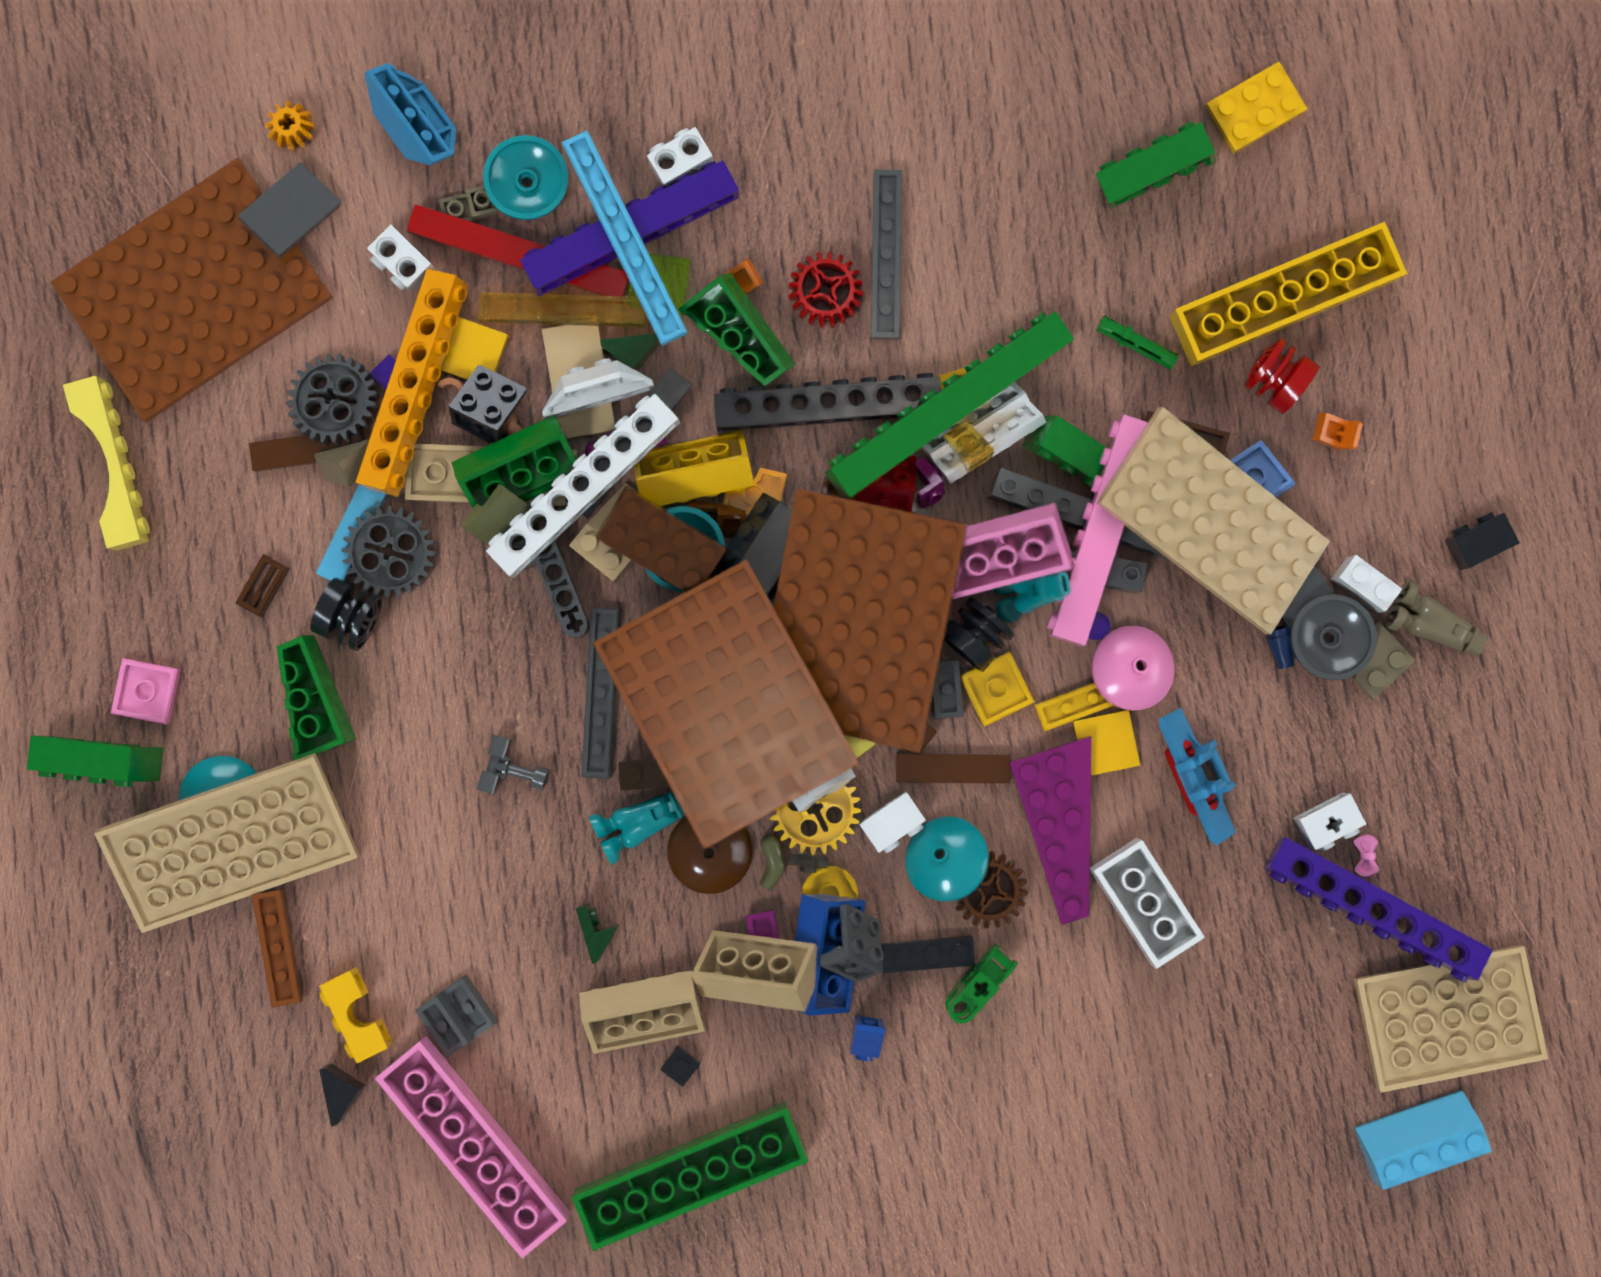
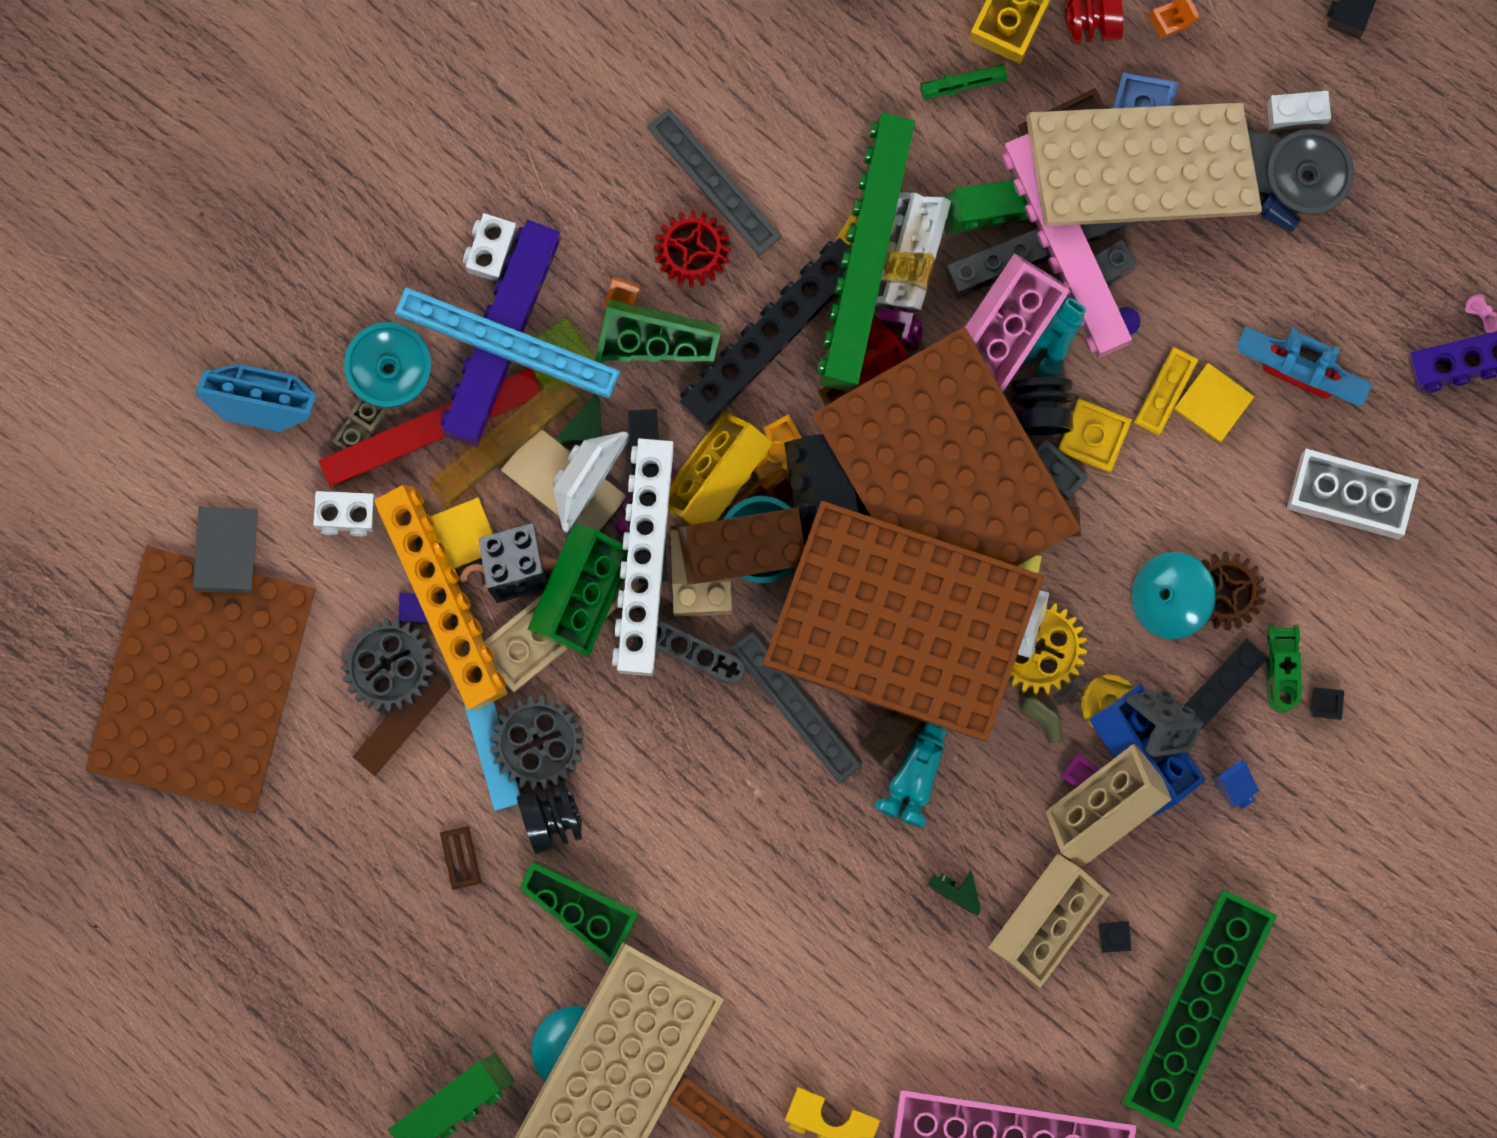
camera: 40 degrees left, 5 degrees down
(122, 517) = (306, 902): light yellow arch -> none
(145, 691) = (442, 1020): bright pink tile -> none
(282, 120) = (177, 485): light orange gear -> none
(342, 463) = (442, 706): dark tan slope -> none
(456, 1015) = (909, 1053): dark grey slope -> none
(496, 515) = (599, 640): olive slope -> none
(500, 766) = (770, 831): dark grey bar -> none
(705, 874) = (995, 774): reddish brown dish -> none
(893, 822) = (1107, 605): white brick -> none
(952, 768) = (1116, 525): reddish brown tile -> none
(988, 1037) = (1327, 703): none -> black plate
(1057, 806) = (1221, 483): magenta wing -> none
(1116, 670) = (1173, 341): bright pink dish -> none
(1314, 821) = (1434, 295): white brick -> none
(1386, 664) = (1368, 158): dark tan wing -> none
(1434, 621) = (1374, 94): dark tan piece -> none

